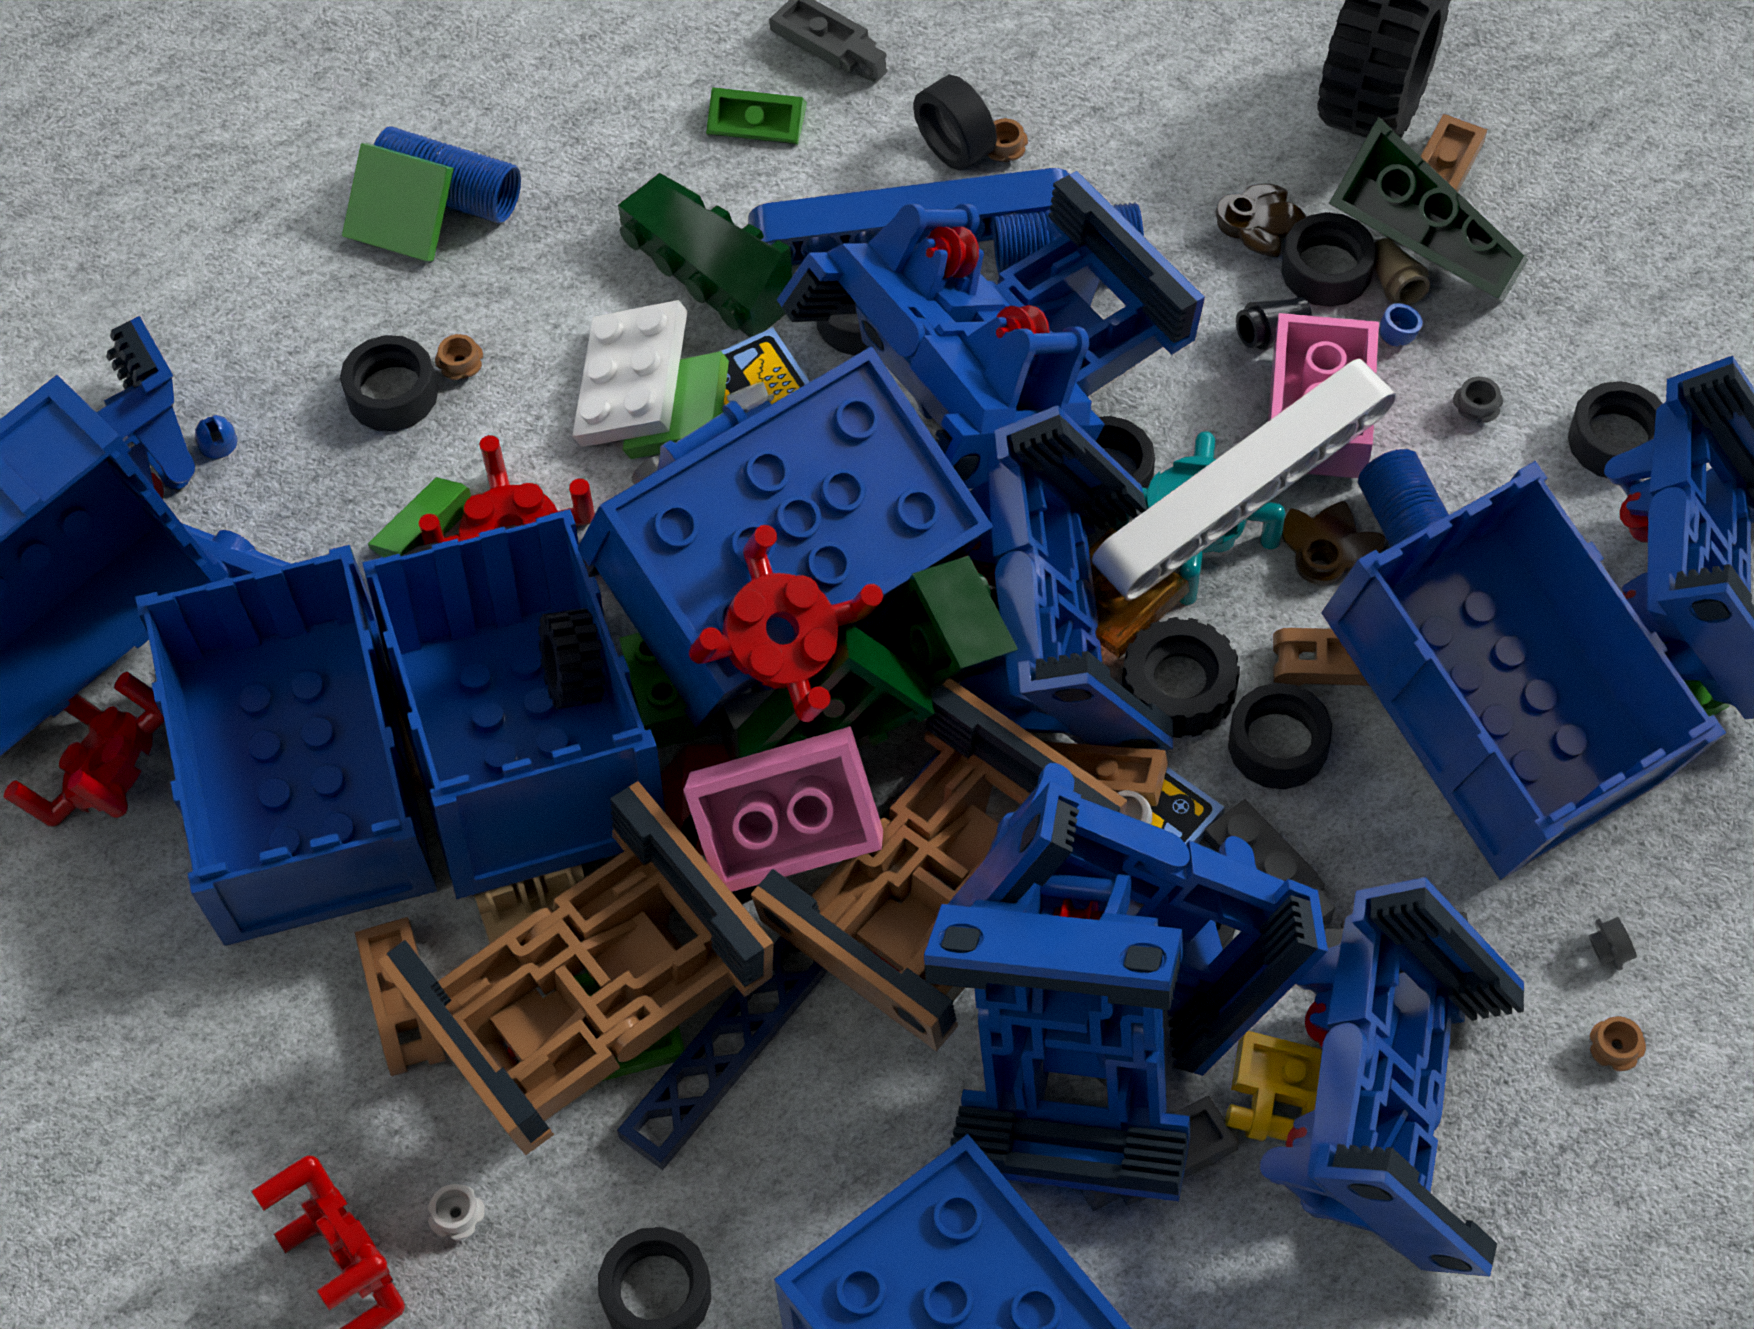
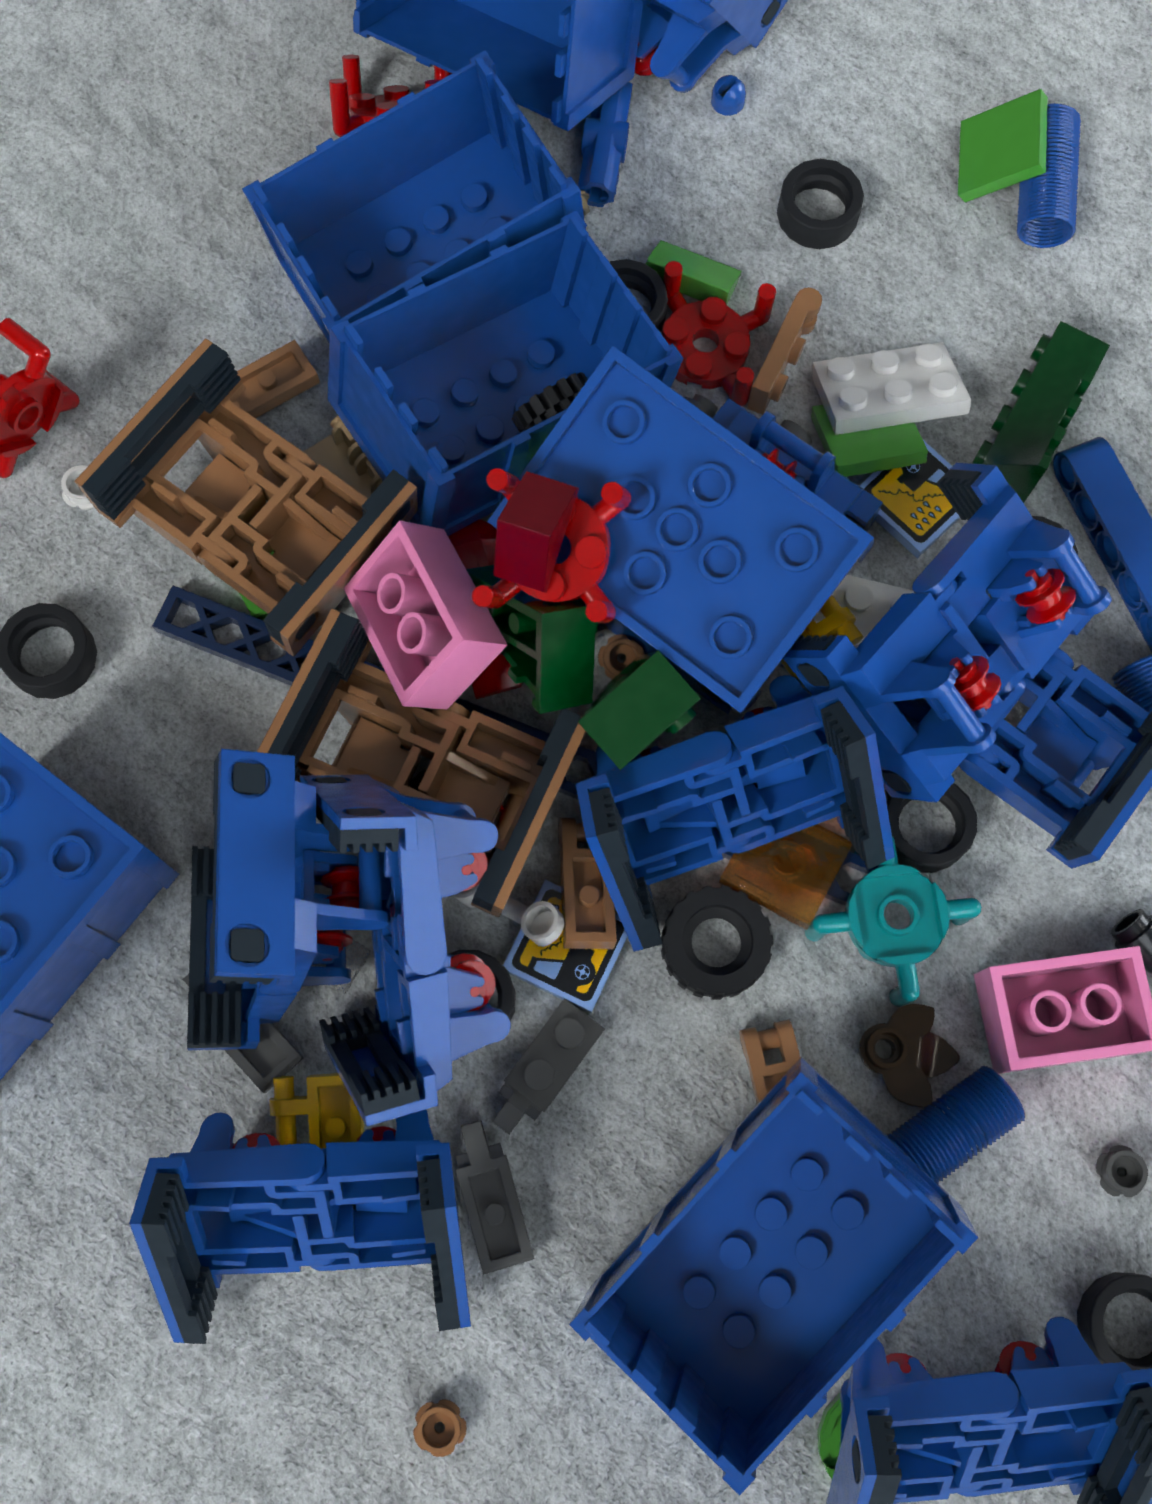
camera: 70 degrees right, 15 degrees up
(456, 348) = (865, 240): medium nougat plate -> none
(548, 452) = (785, 349): none -> medium nougat plate
(751, 396) = (888, 490): white plate -> none
(769, 629) = (533, 530): none -> dark red slope
(1243, 479) = (928, 955): white beam -> none
(1281, 700) = (710, 1026): black tyre -> none
(1612, 943) = (541, 1407): dark grey plate -> none

